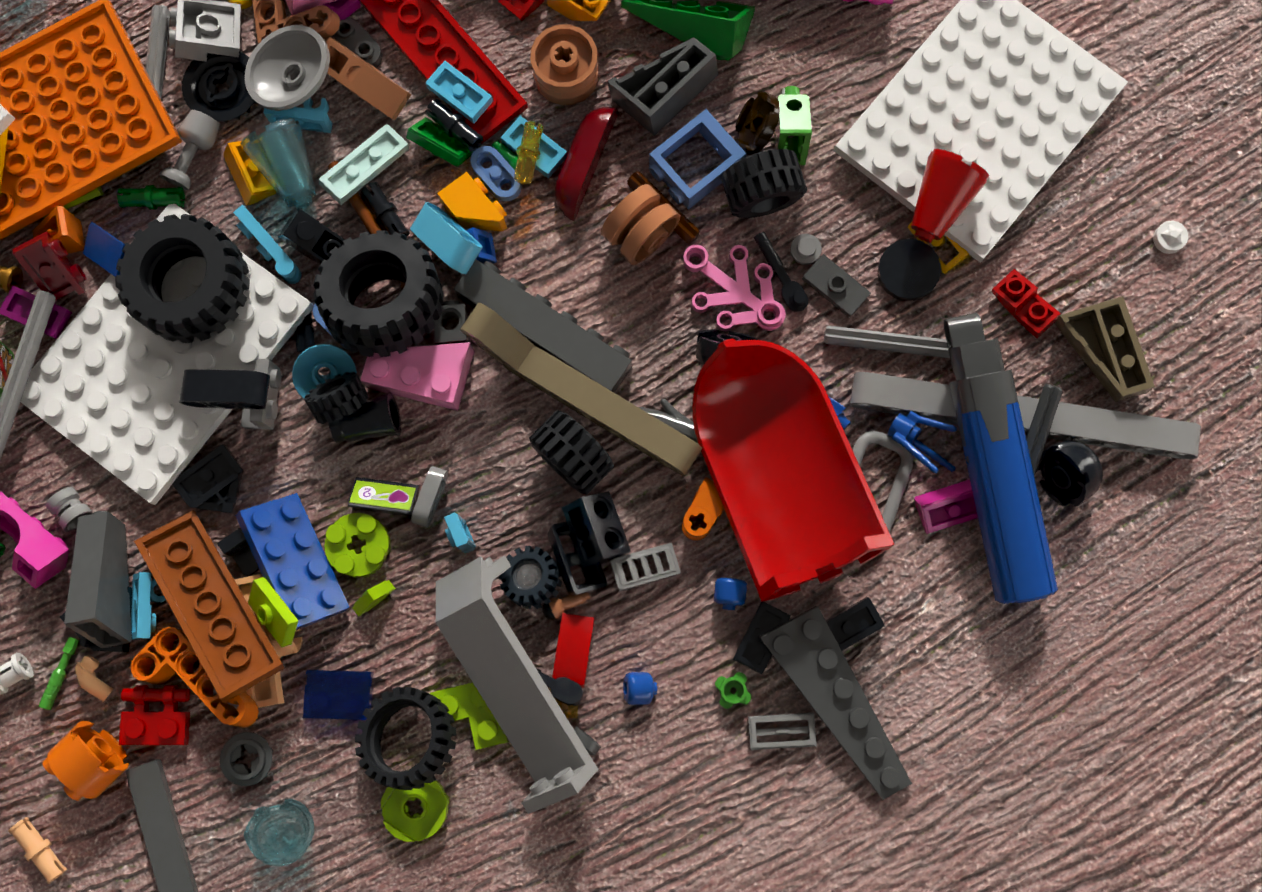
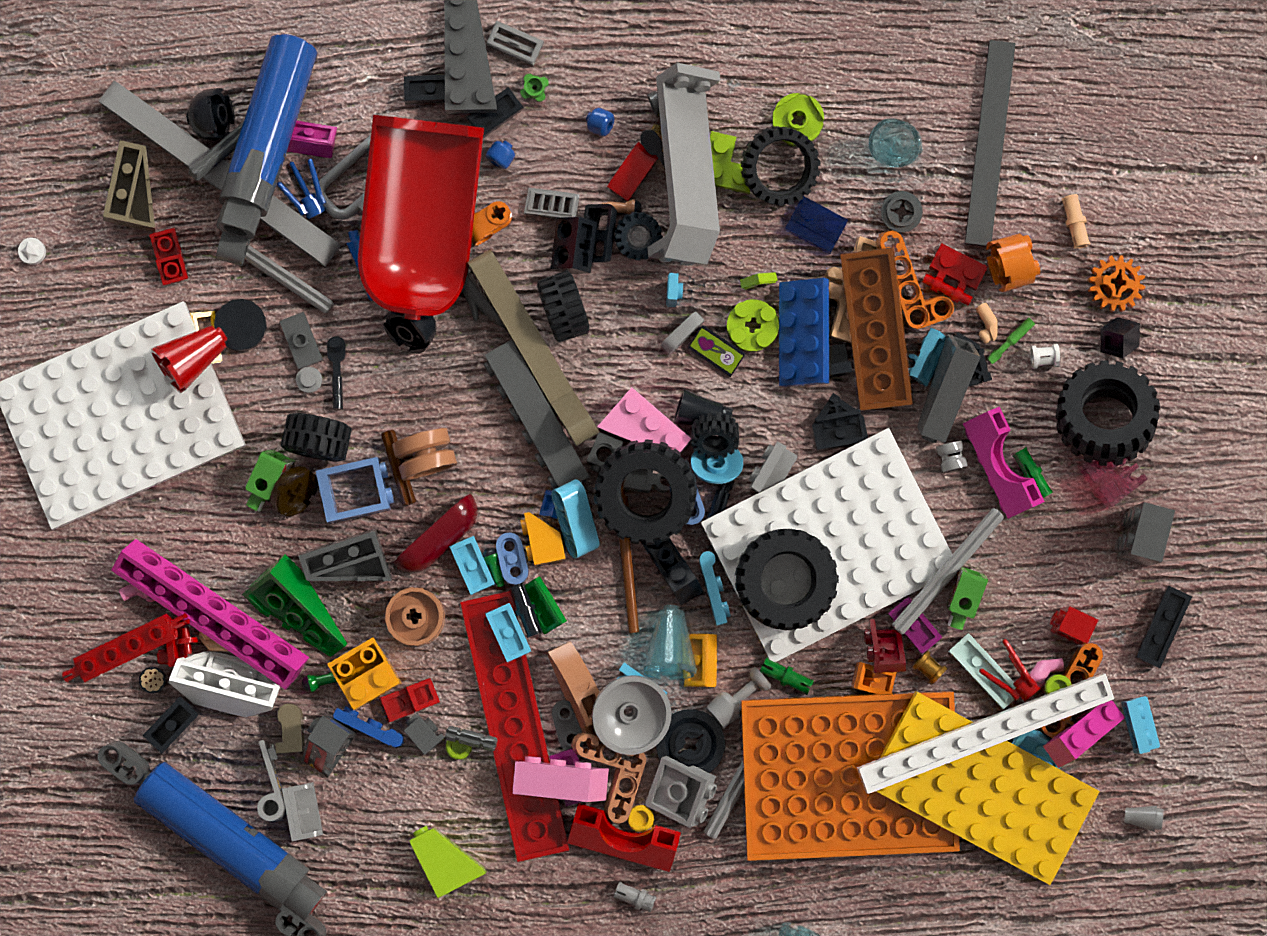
camera: 160 degrees left, 5 degrees up
(103, 248) = (837, 643): blue slope -> none
(224, 389) = (793, 477): black beam -> none
(272, 612) = (831, 297): lime plate -> none
(363, 164) = (609, 615): light aqua plate -> none
(383, 210) = (612, 571): black pin -> none
(528, 153) = (480, 555): clear yellow axle -> none
(737, 291) = (377, 373): bright pink plant -> none

